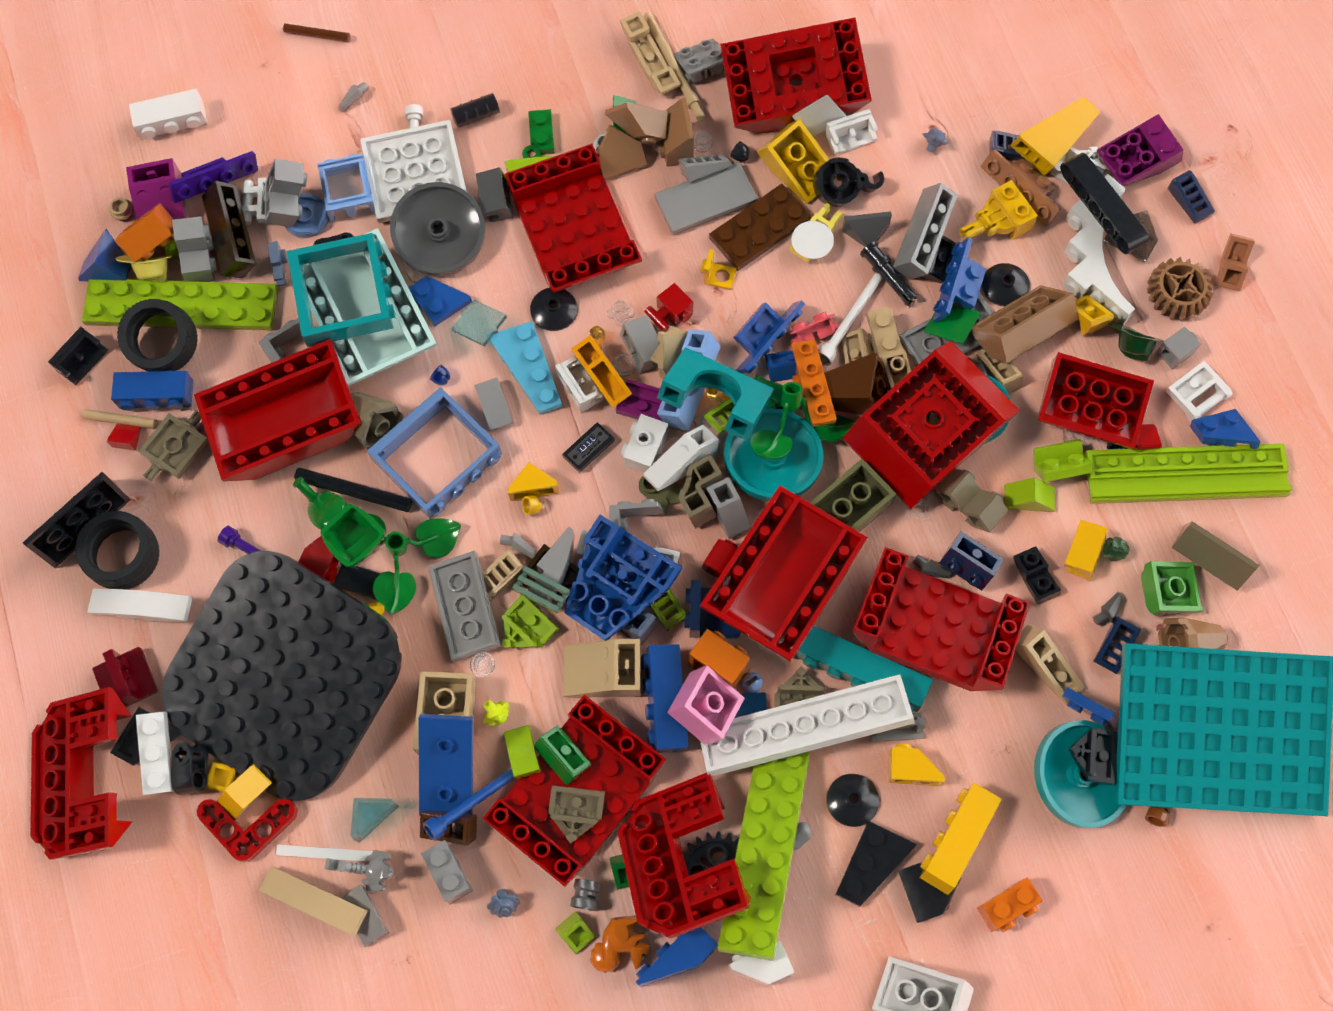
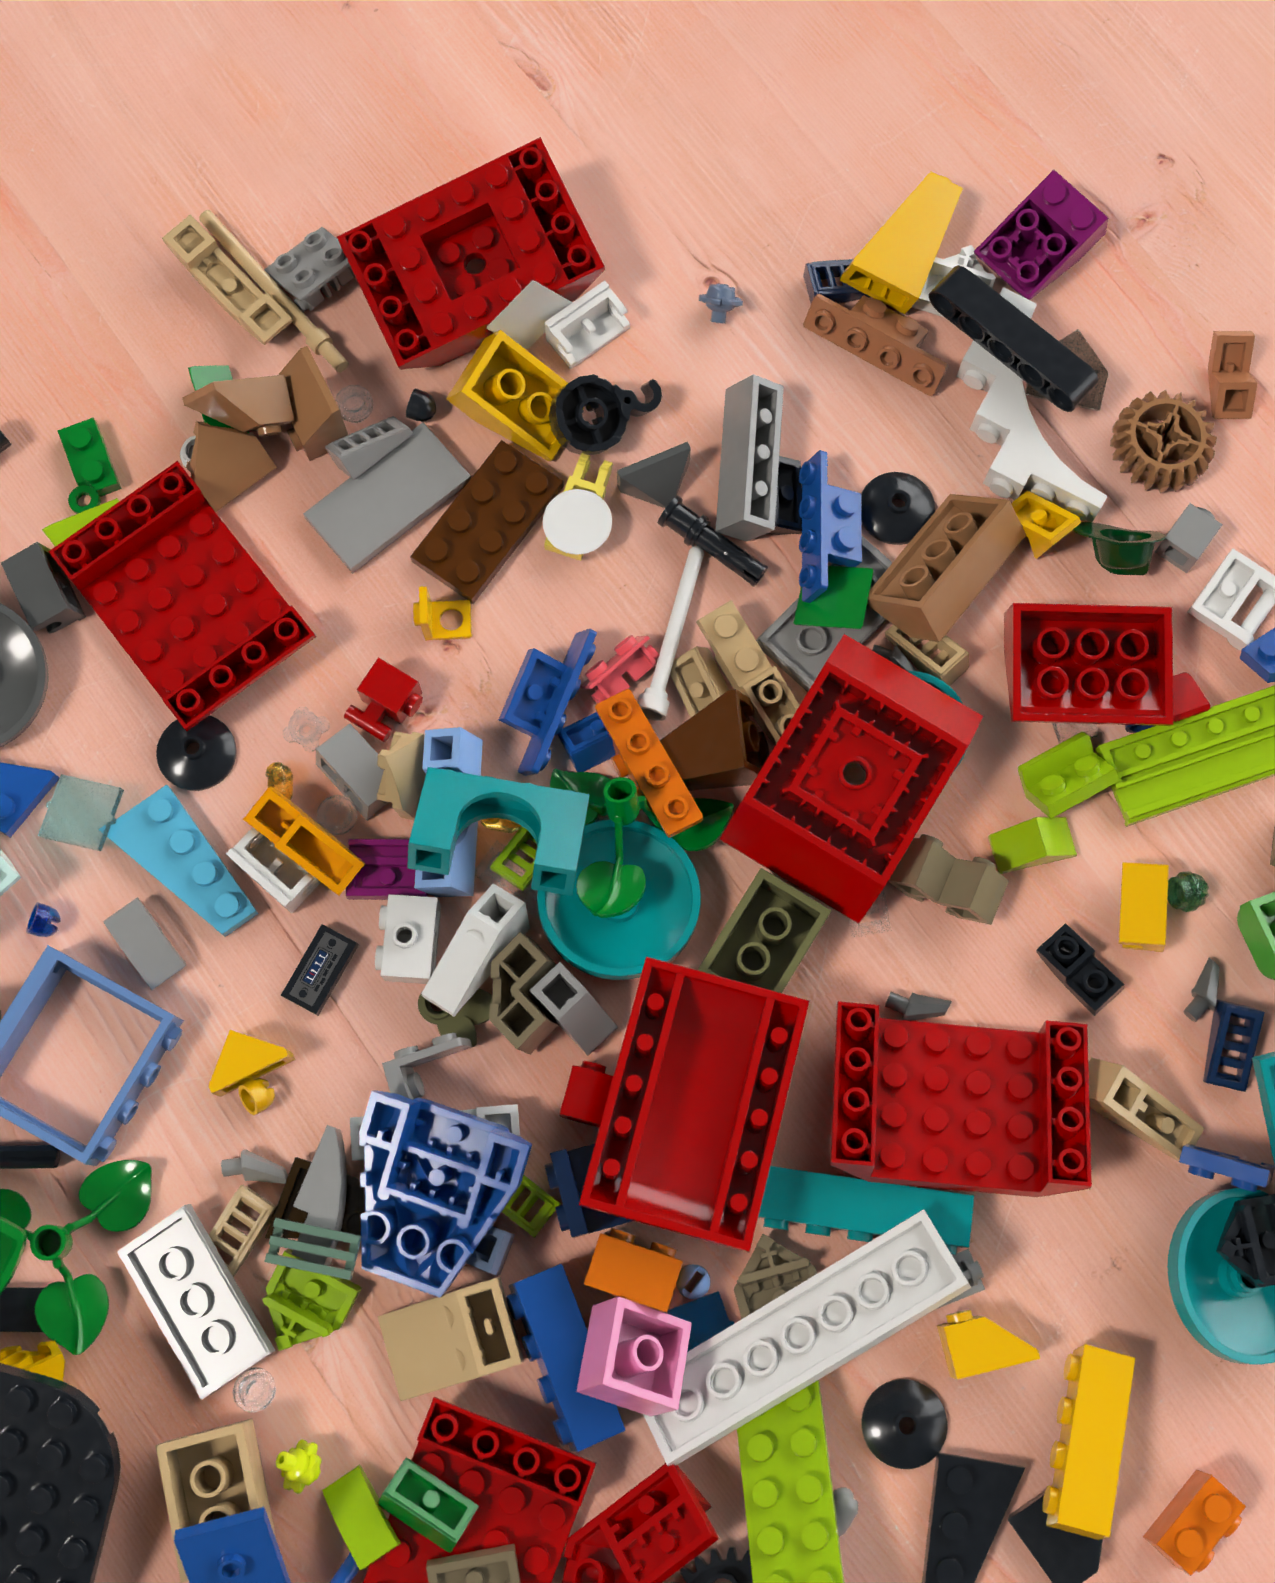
camera: 20 degrees left, 5 degrees up
(971, 561) = (976, 981): dark blue brick -> none
(1002, 214) = (860, 396): yellow brick -> none
(1195, 188) = (1145, 278): dark blue slope -> none

